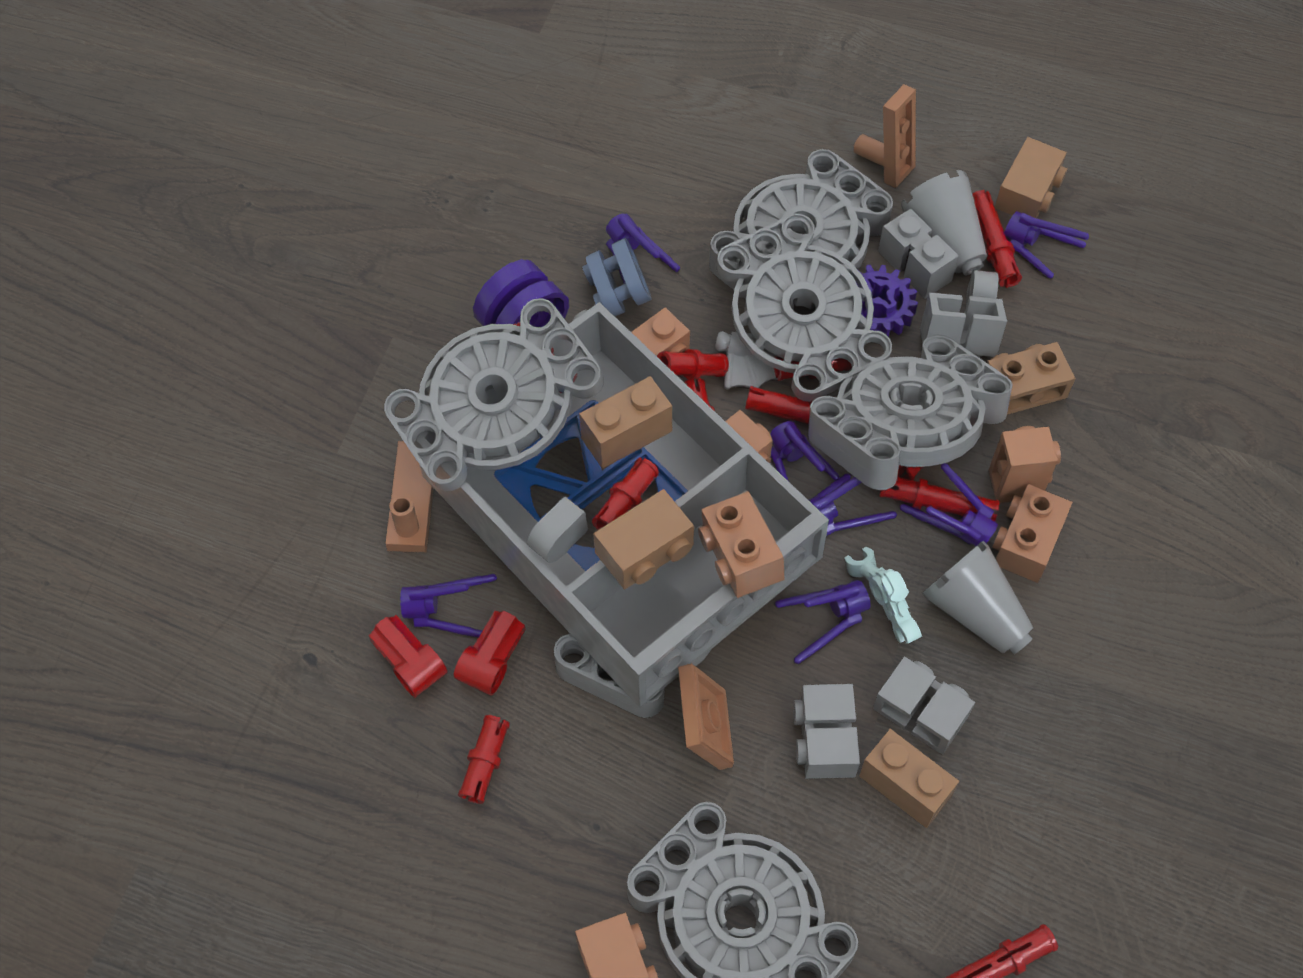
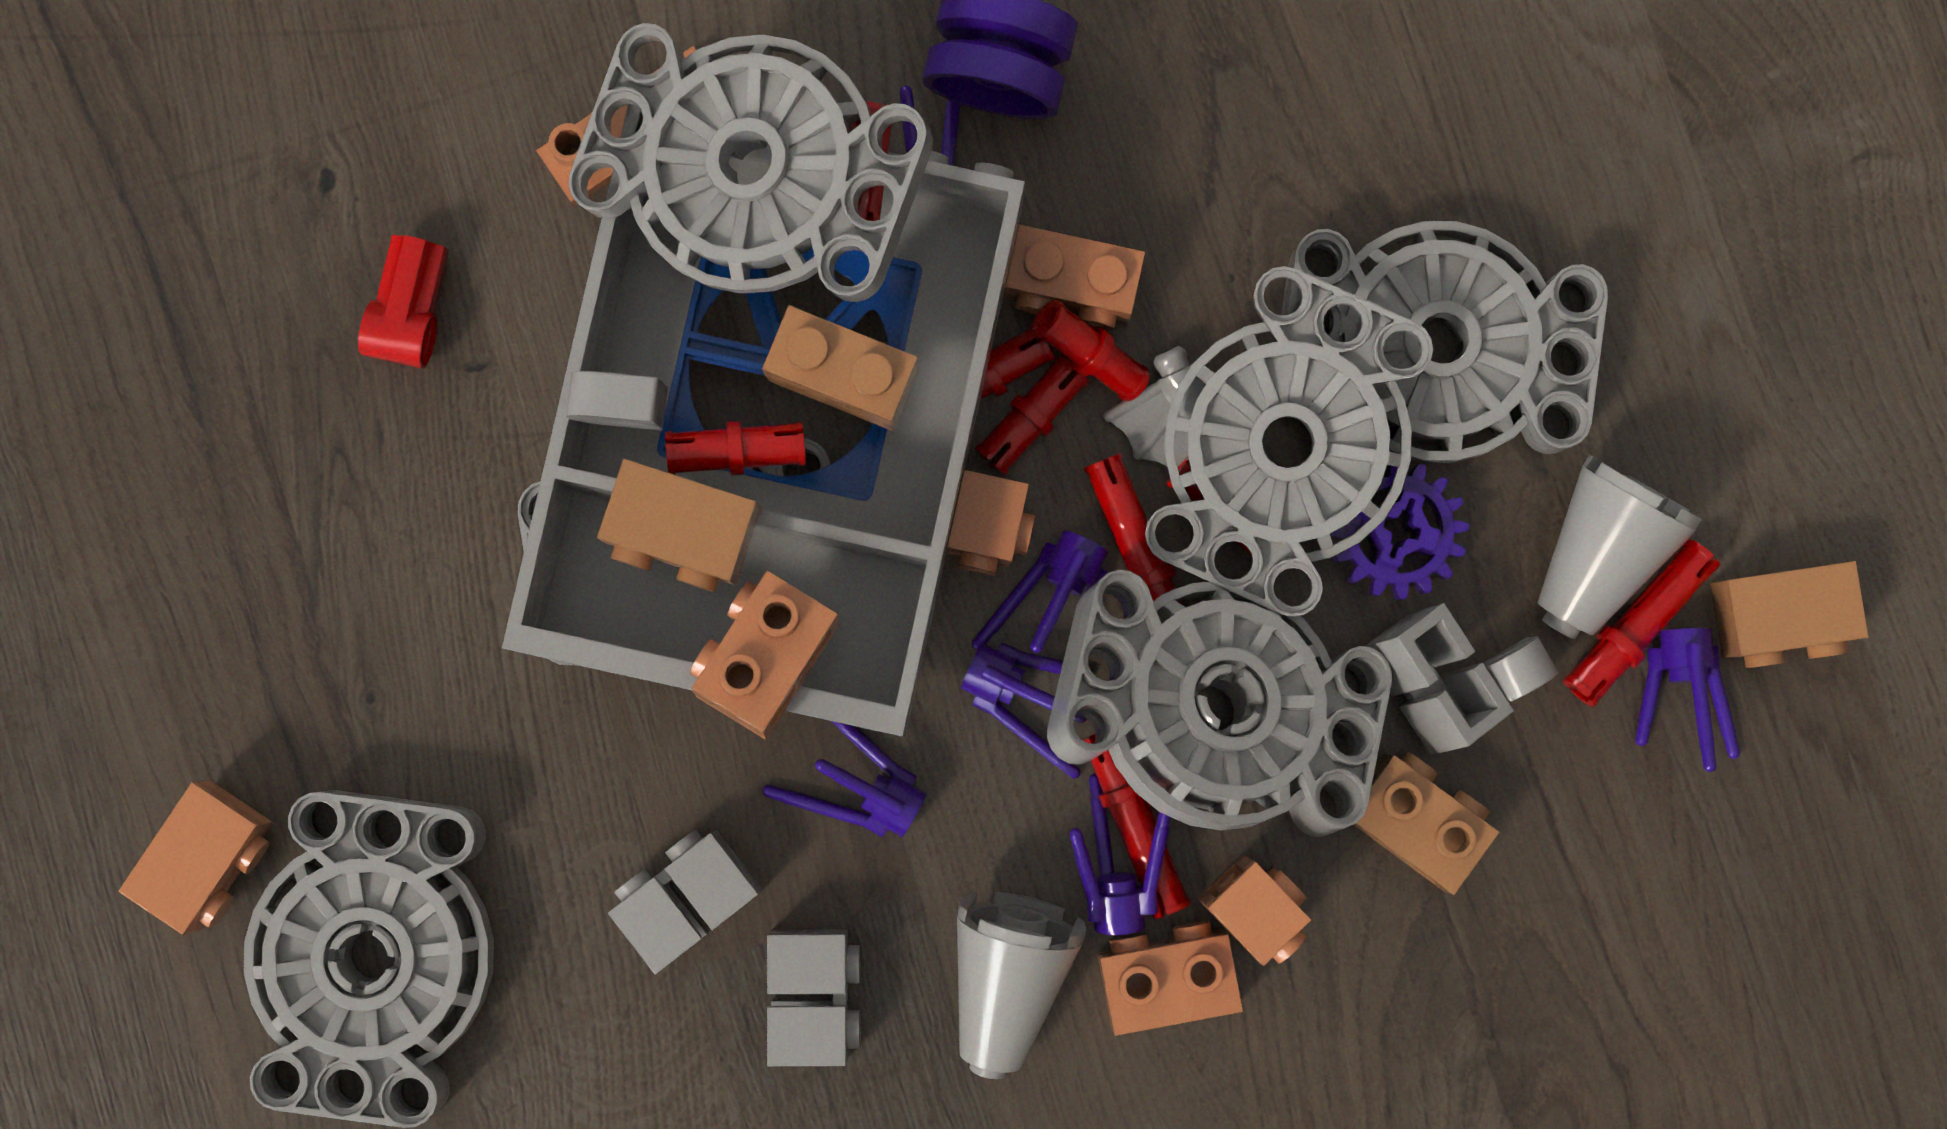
camera: 55 degrees right, 25 degrees up
(422, 601) = (489, 262): dark purple plant -> none
(484, 759) = (344, 502): red pin -> none
(486, 662) = (467, 406): red piece -> none
(599, 273) = (1160, 143): sand blue brick -> none
(624, 227) = (1250, 98): dark purple plant -> none
(705, 717) = (577, 741): nougat tile -> none
(889, 591) = (933, 843): light aqua piece -> none
(899, 145) = (1690, 369): nougat piece -> none
(908, 778) = (690, 1044): medium nougat brick -> none
(931, 260) = (1522, 560): light grey piece -> none

